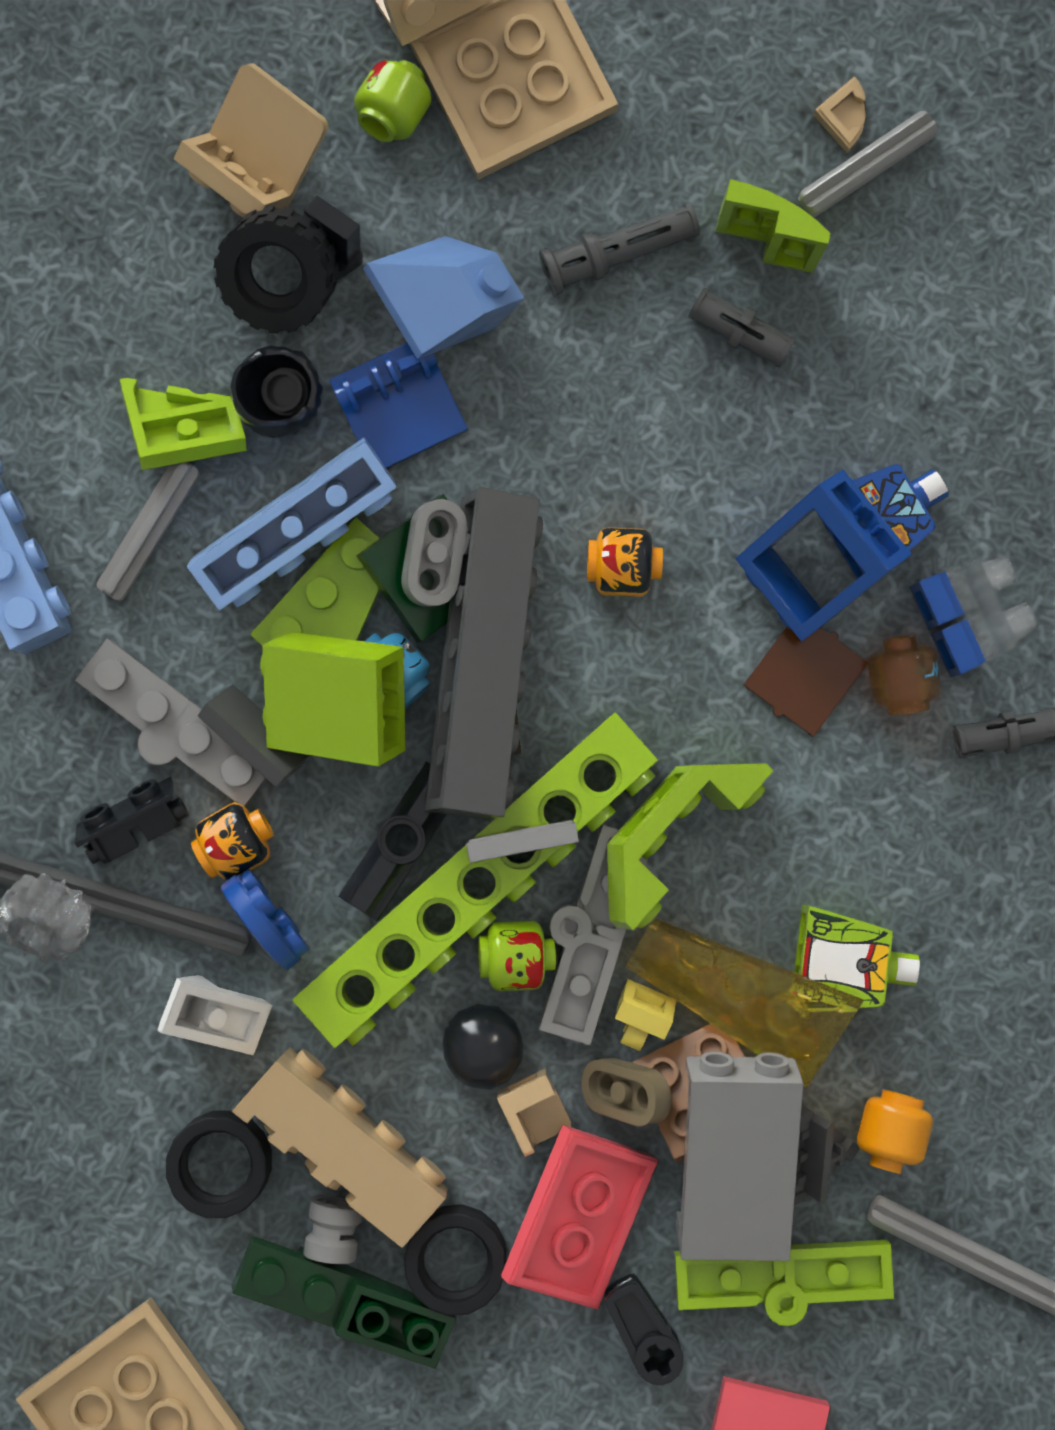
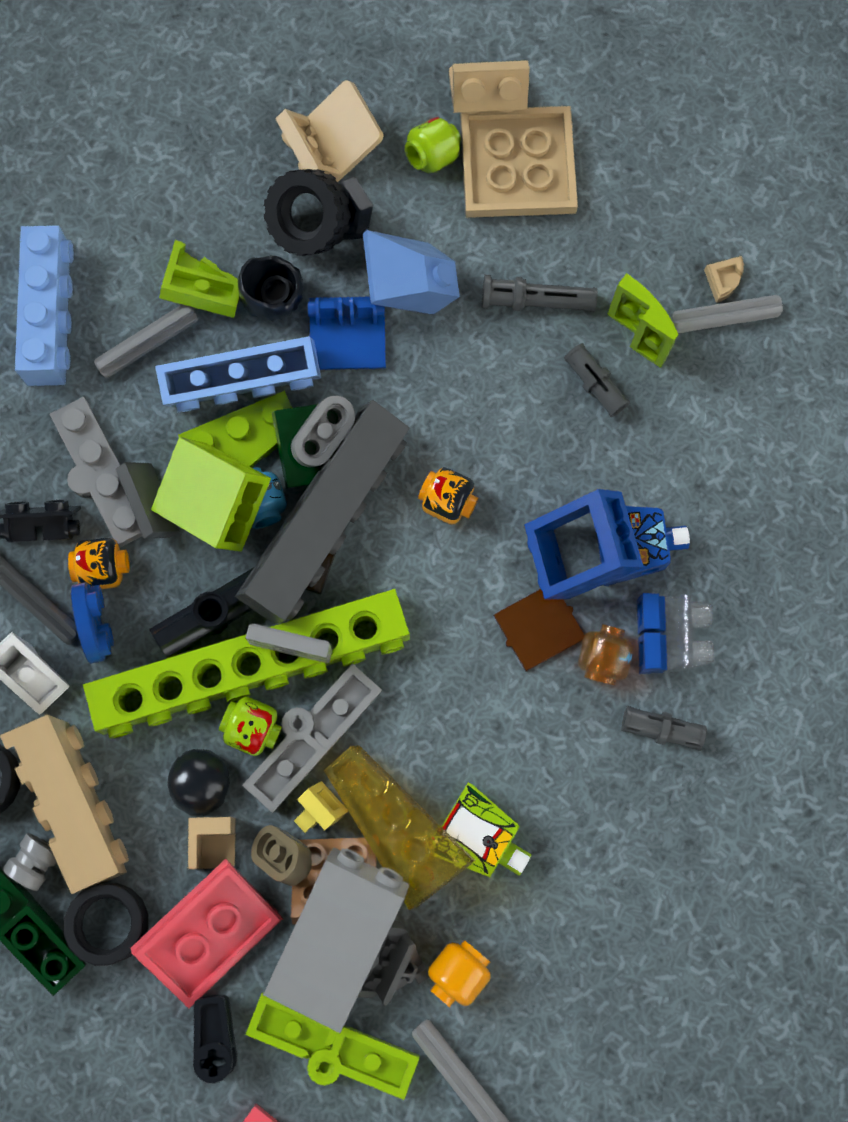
camera: 20 degrees right, 10 degrees down
(631, 887) = (352, 708): lime slope -> none

